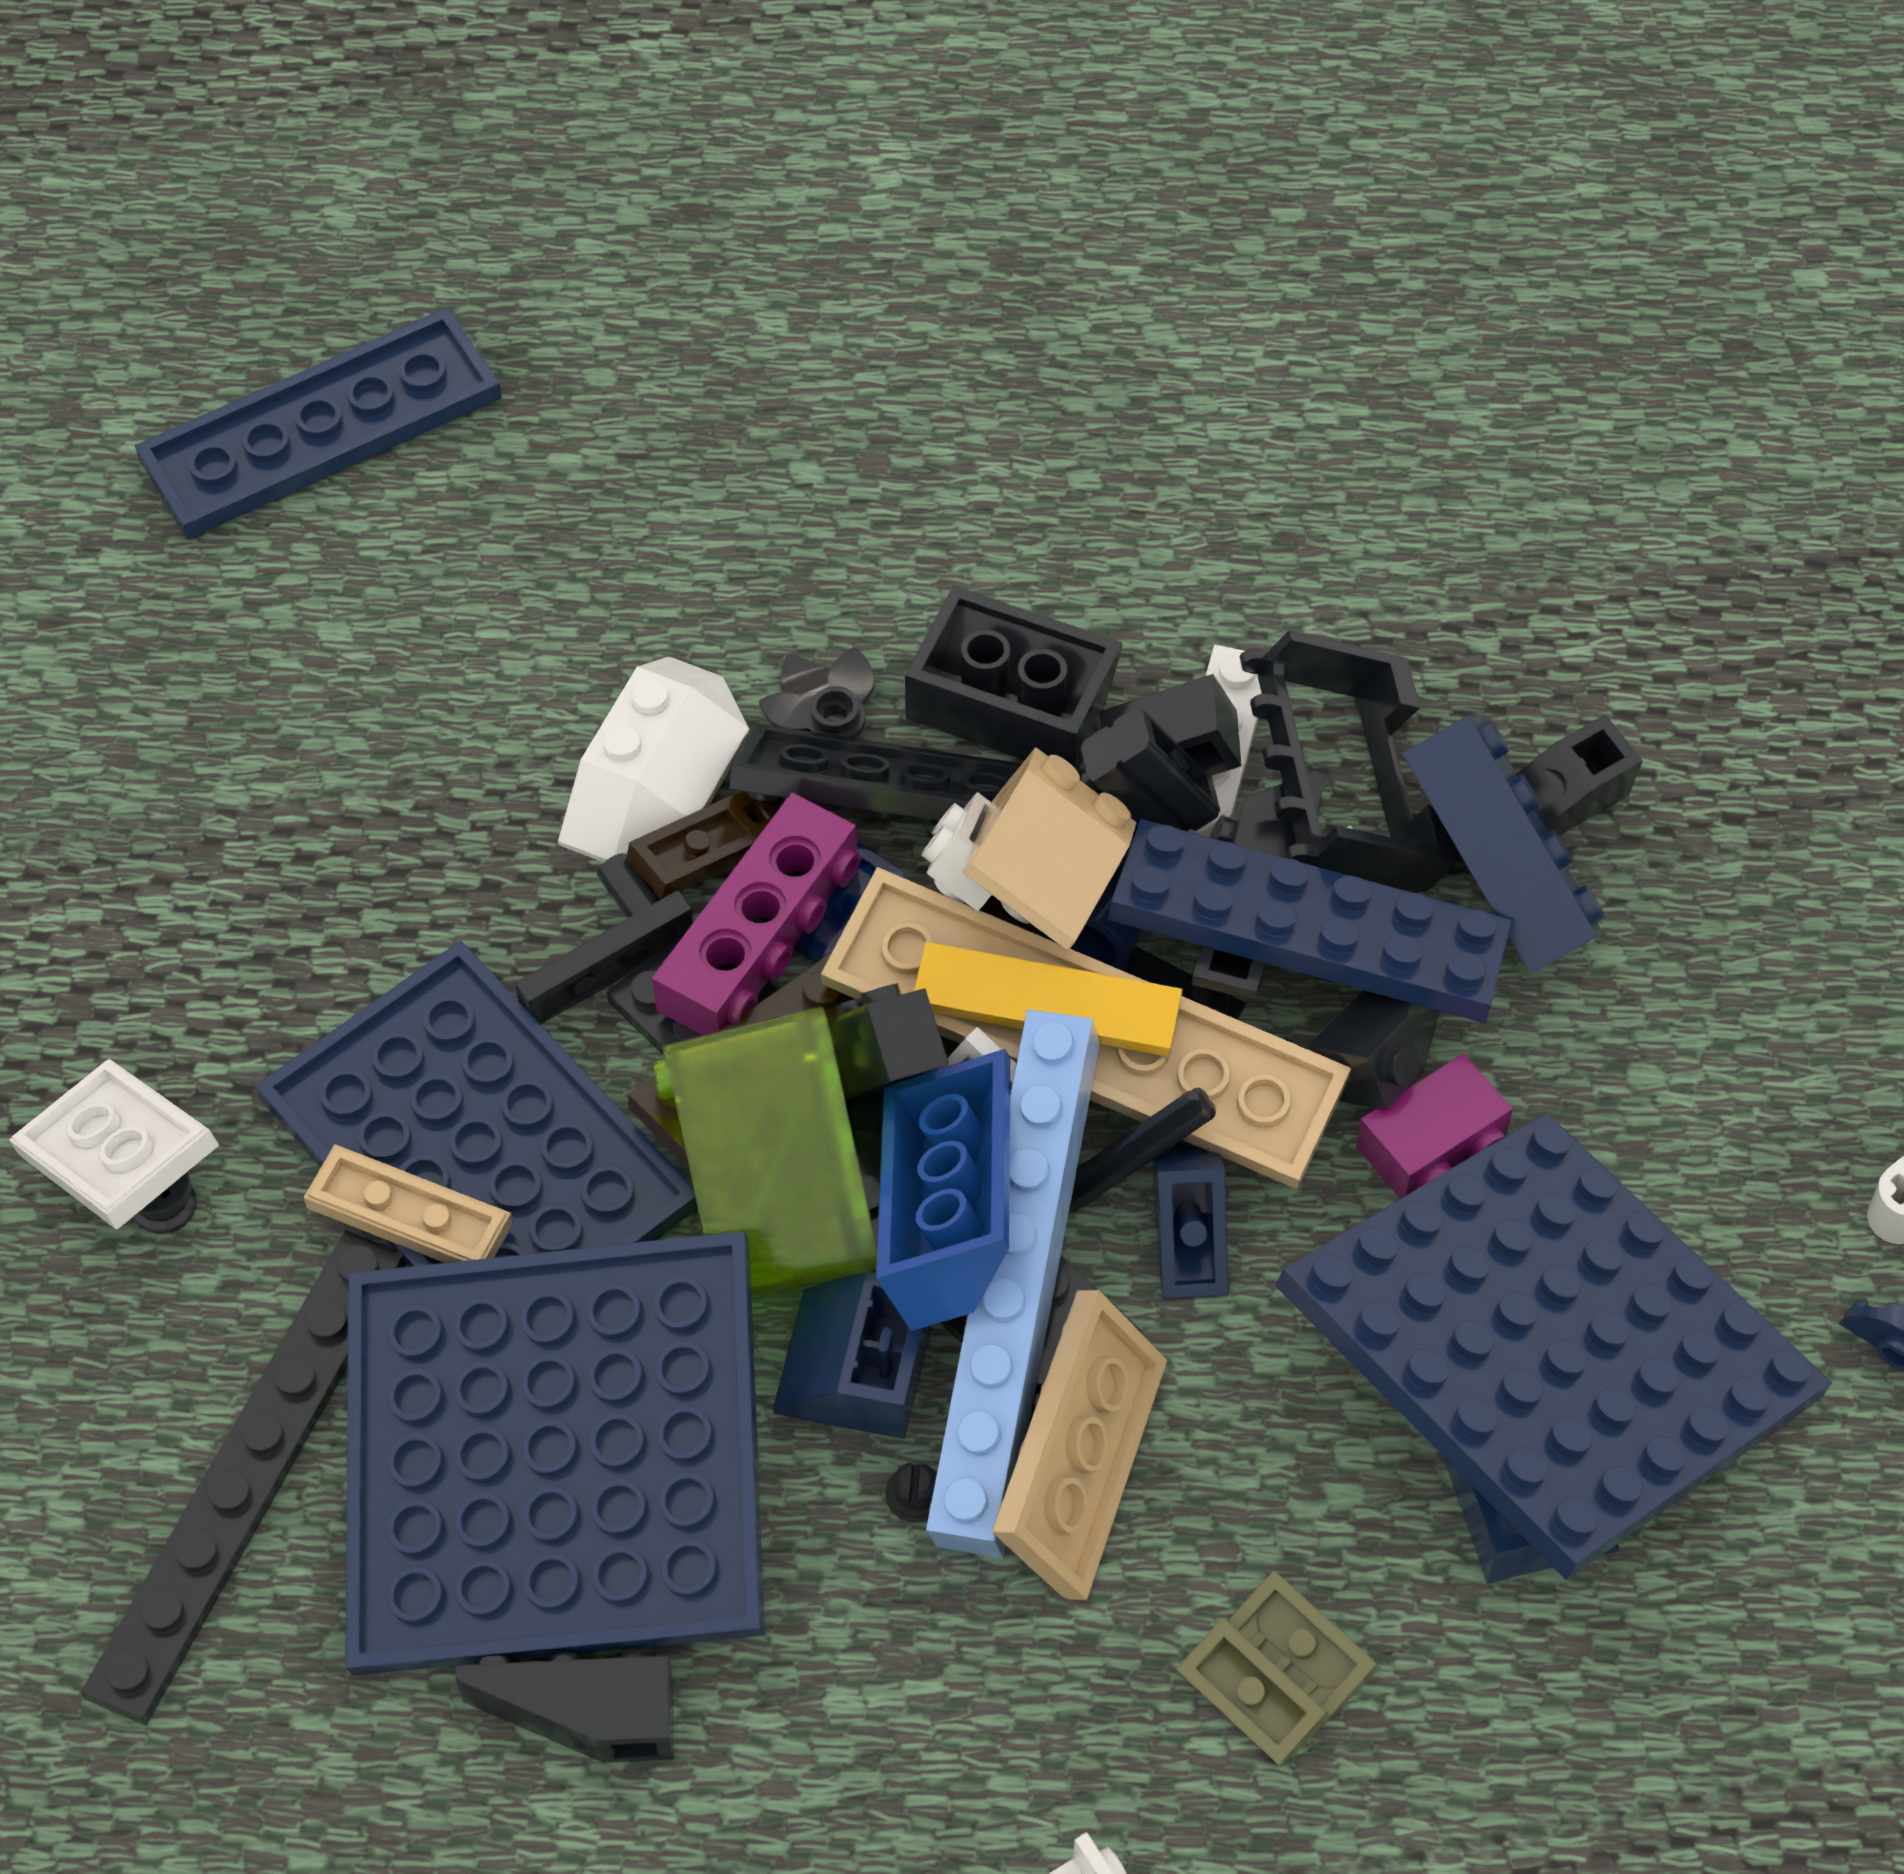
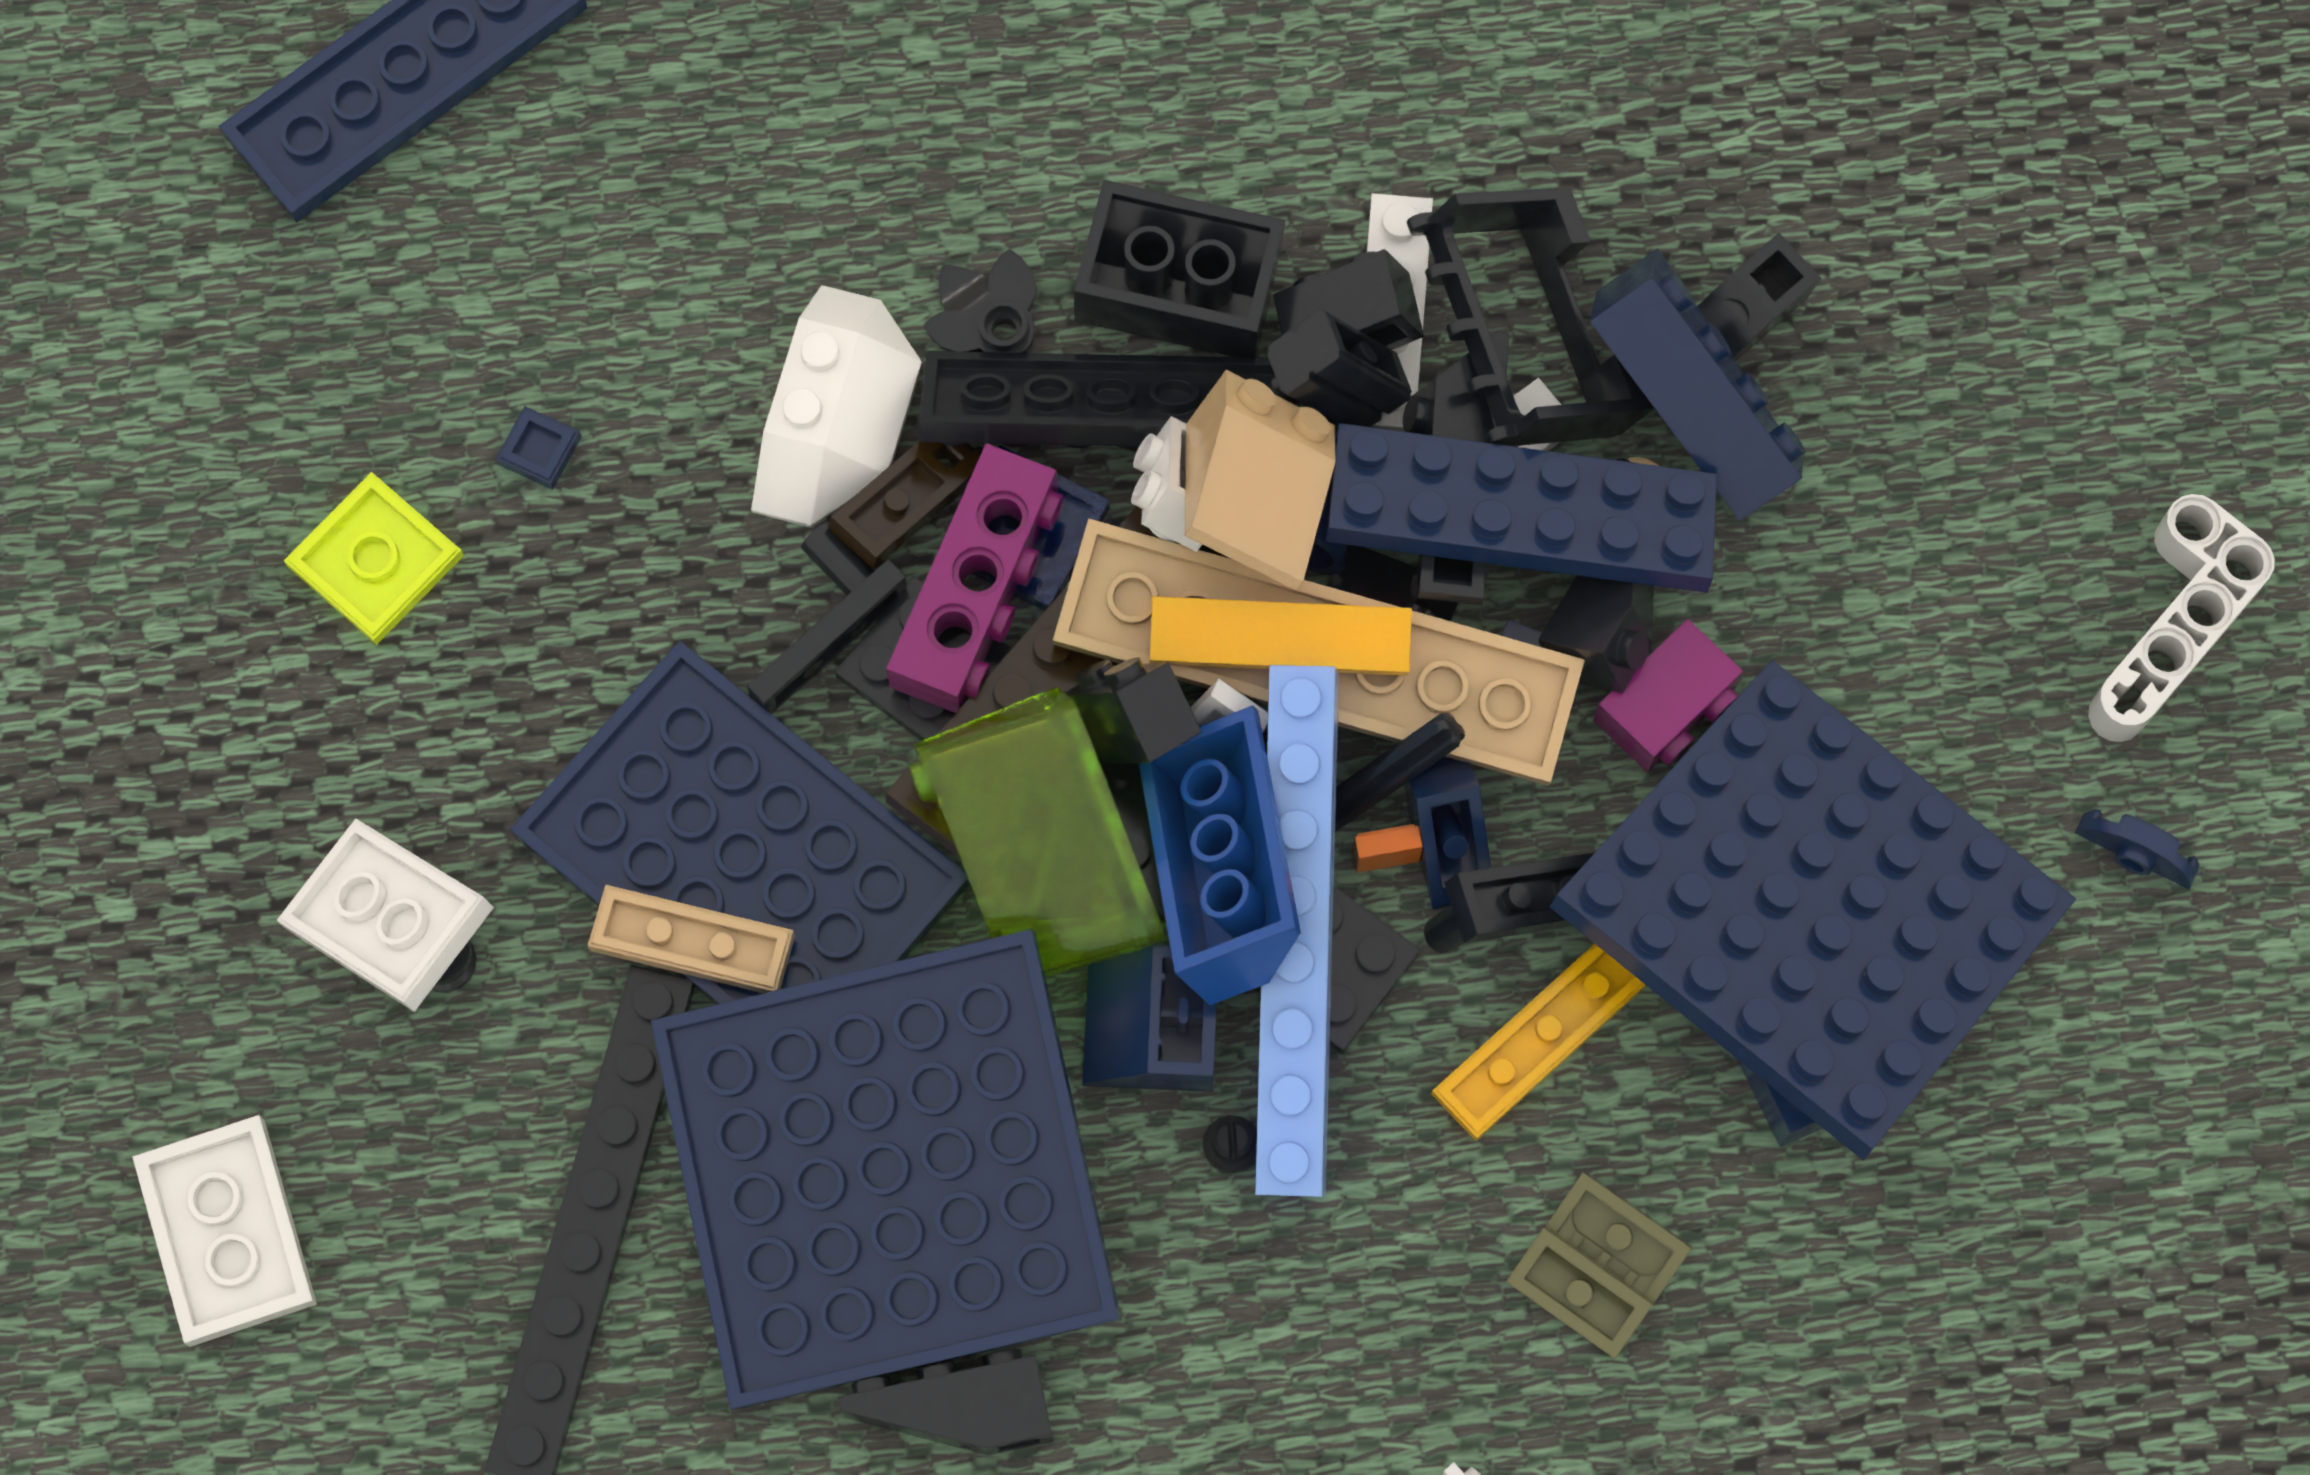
camera: 10 degrees left, 15 degrees up
(186, 833) = (374, 558): none -> neon yellow tile
(367, 759) = (538, 447): none -> dark blue tile
(1080, 1445) = (1384, 1081): tan plate -> none
(1124, 1229) = (1387, 848): none -> orange tile
(1226, 1288) = (1501, 902): none -> black piece
(1253, 1436) = (1536, 1041): none -> yellow tile

